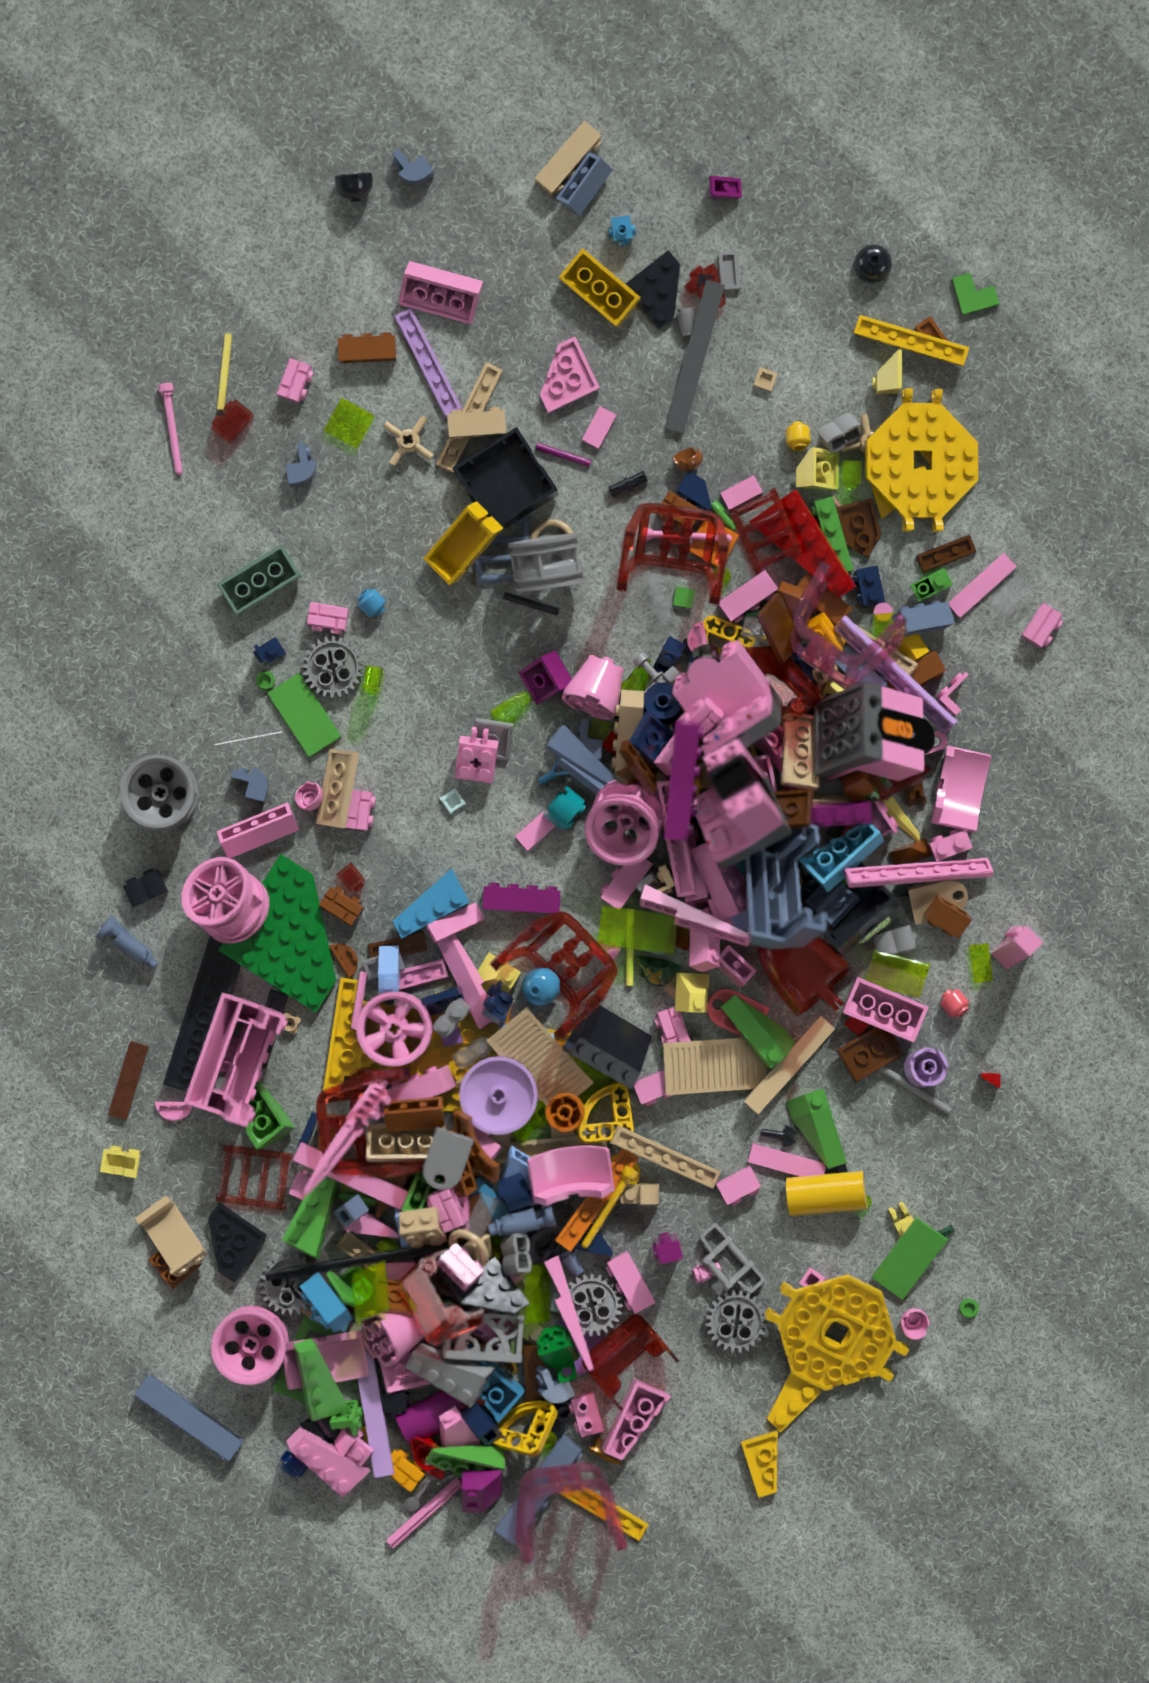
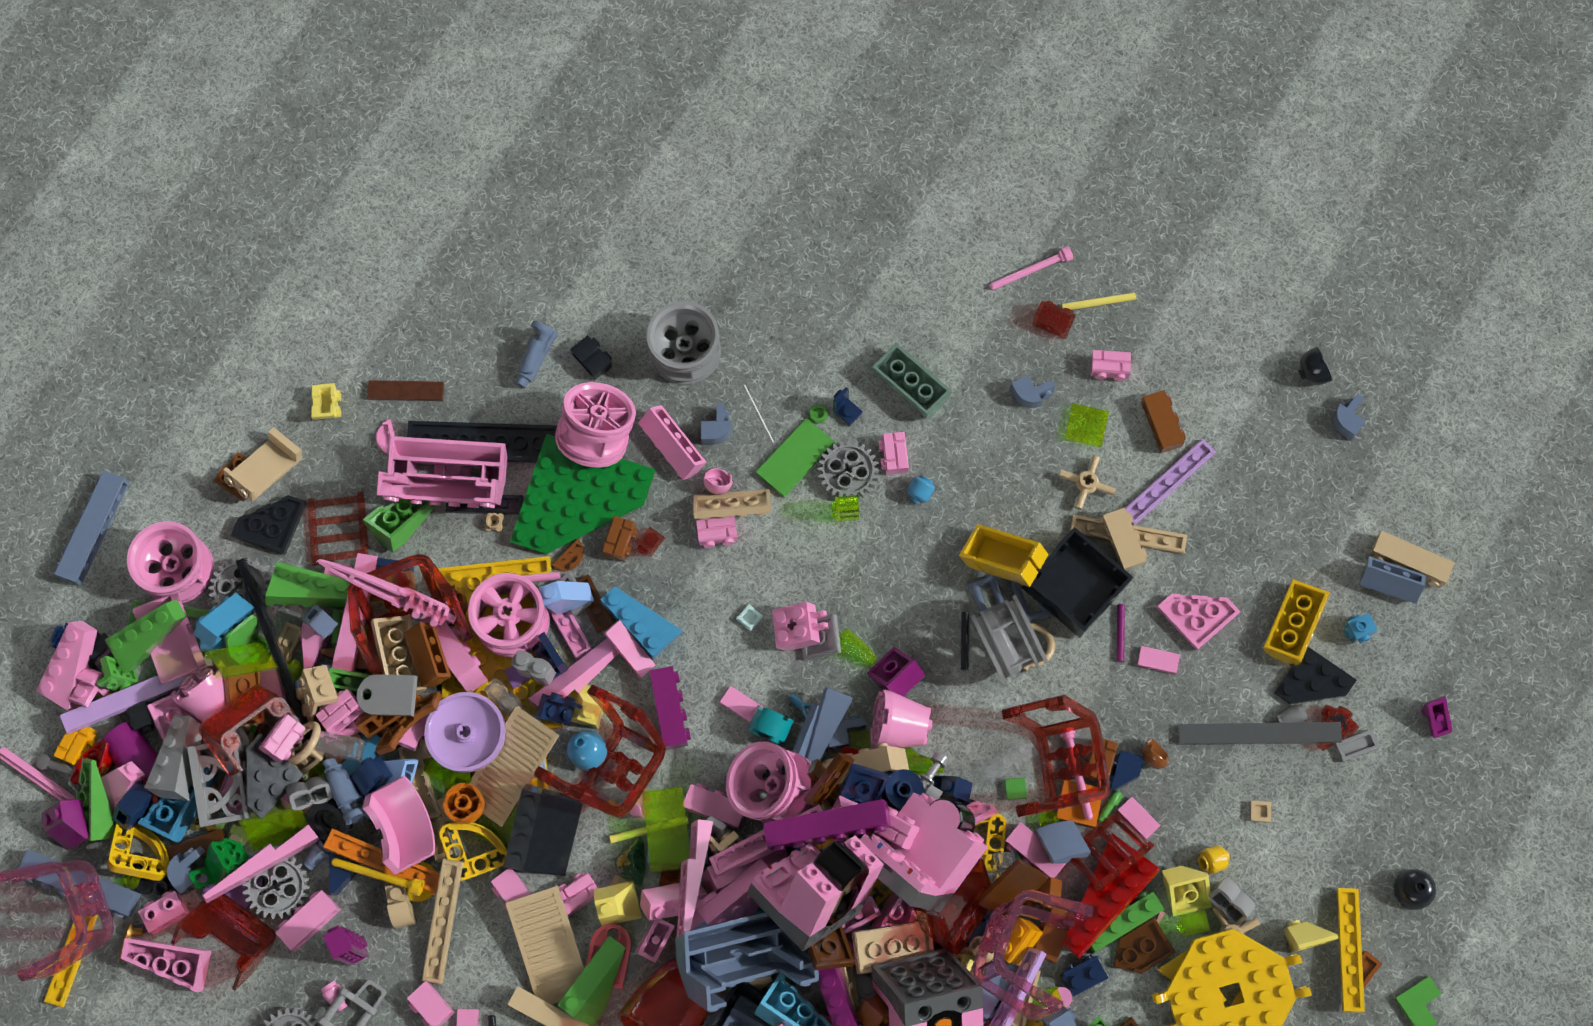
camera: 75 degrees right, 15 degrees down
(440, 292) = (1239, 474): bright pink slope -> none
(628, 483) = (1112, 703): black pin -> none
(746, 569) = (1062, 842): none -> sand blue slope

